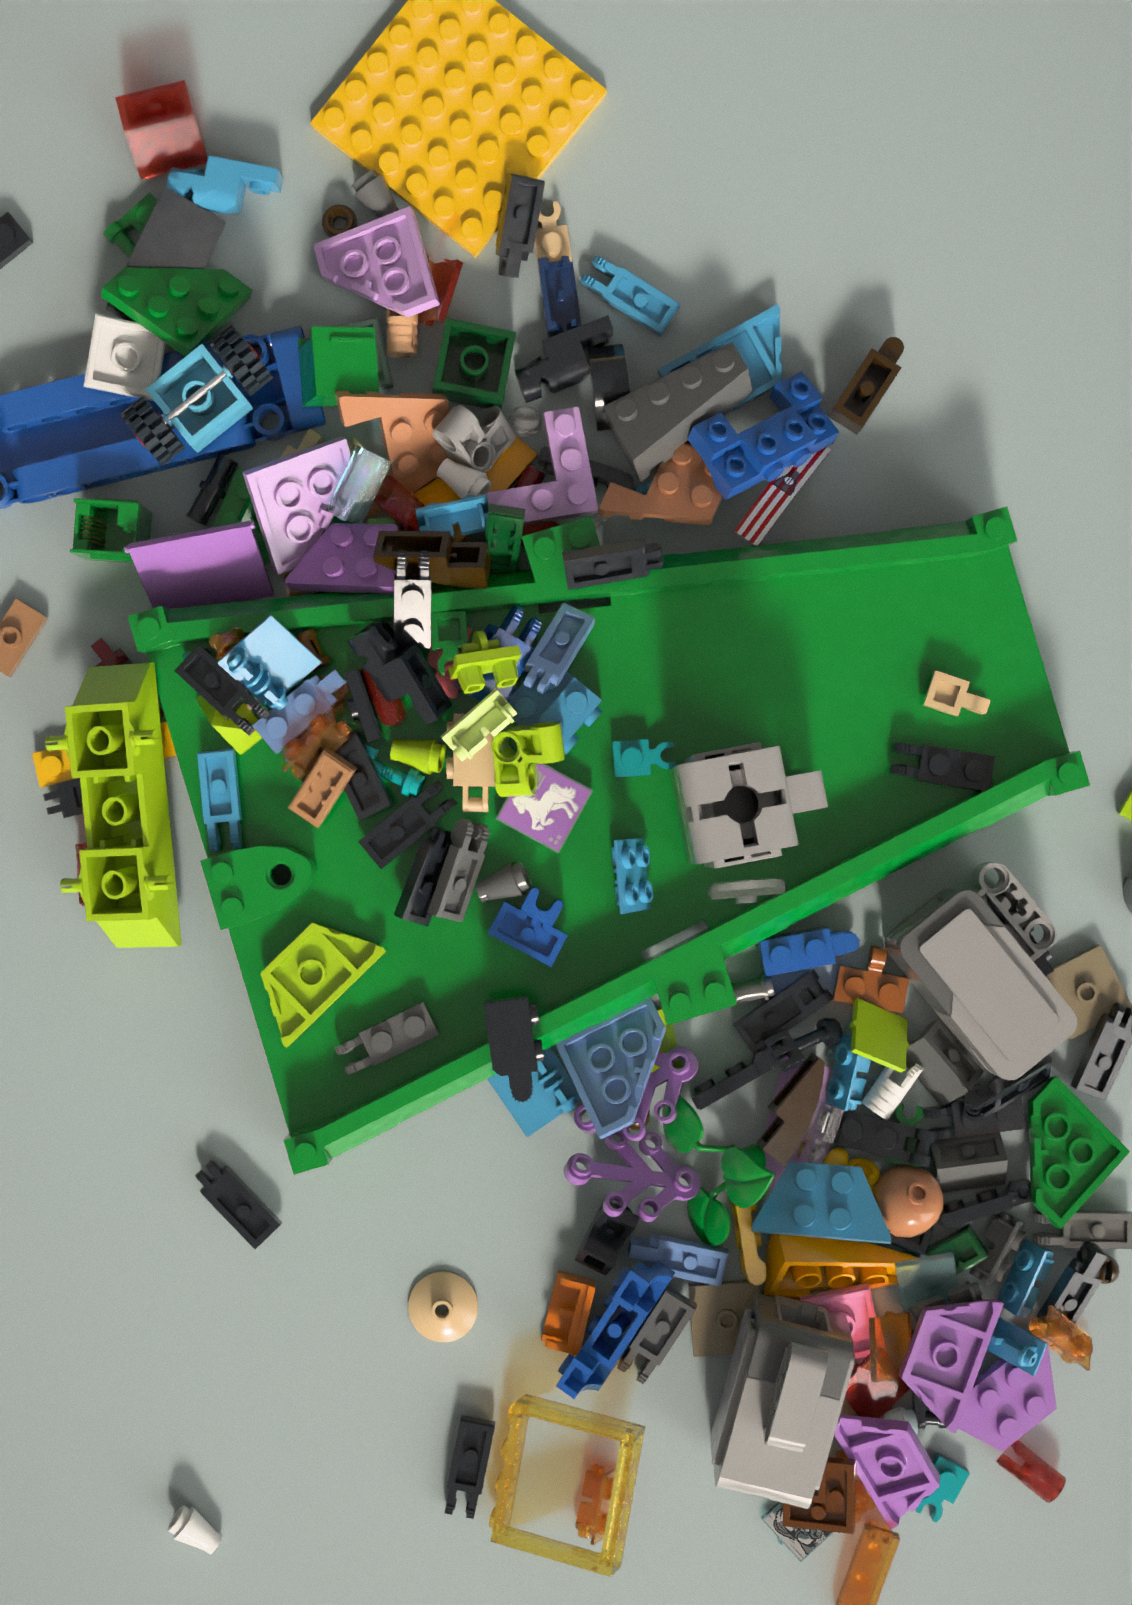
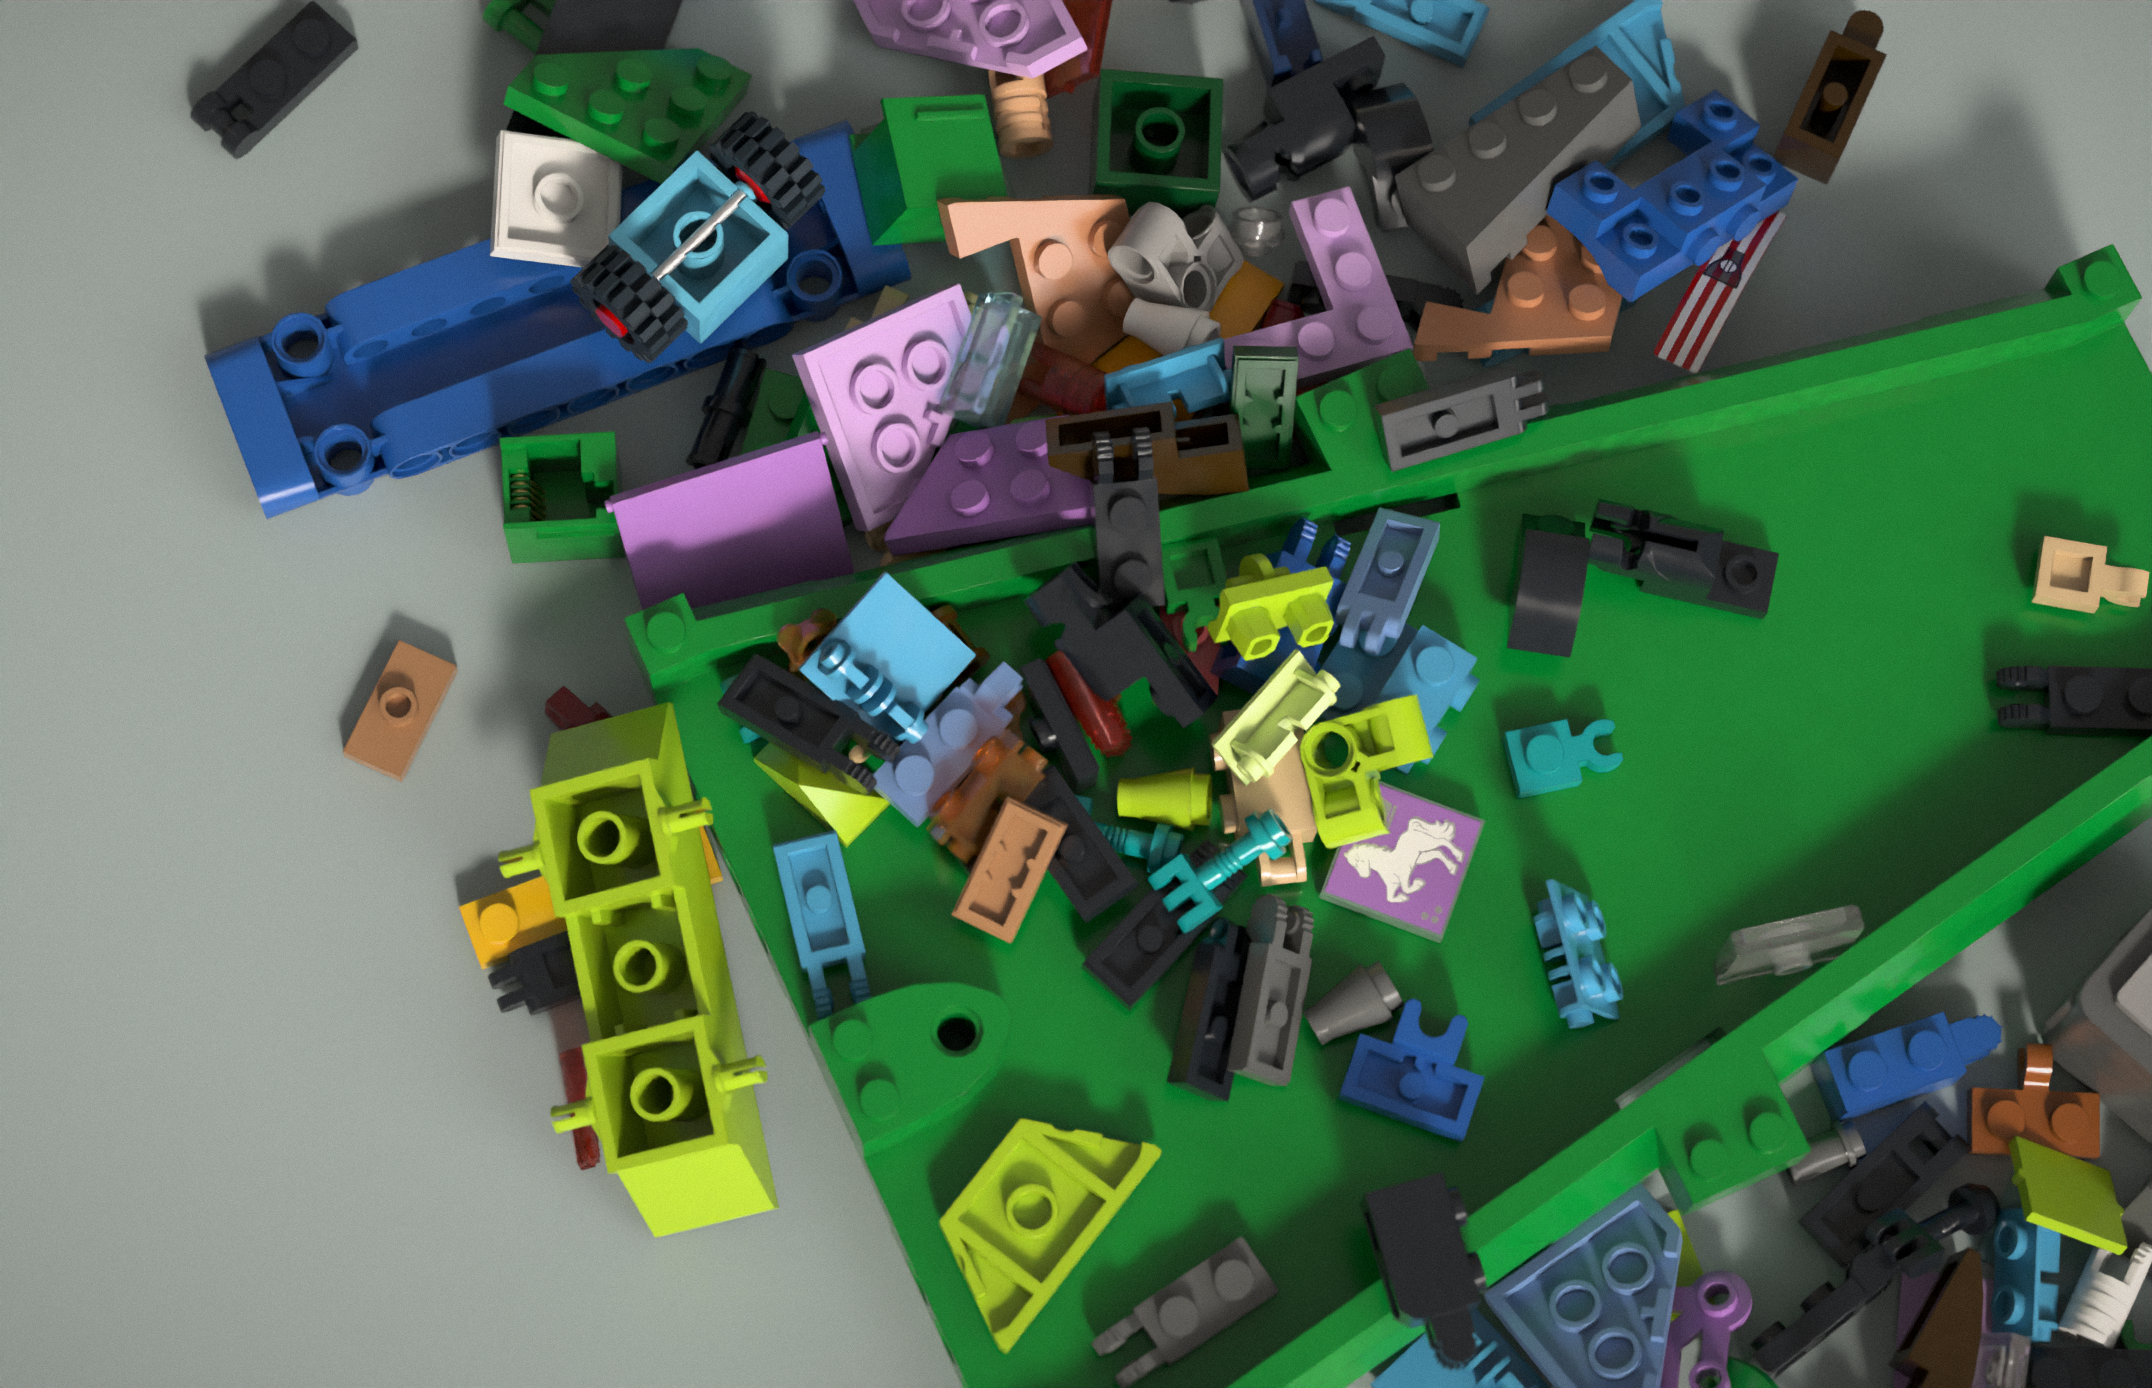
camera: 15 degrees left, 15 degrees down
(464, 790) = (1265, 834): none -> teal hinge
(649, 661) = (1548, 585): none -> black brick
(729, 657) = (1681, 559): none -> black plate
(740, 804) = (1755, 778): light grey piece -> none

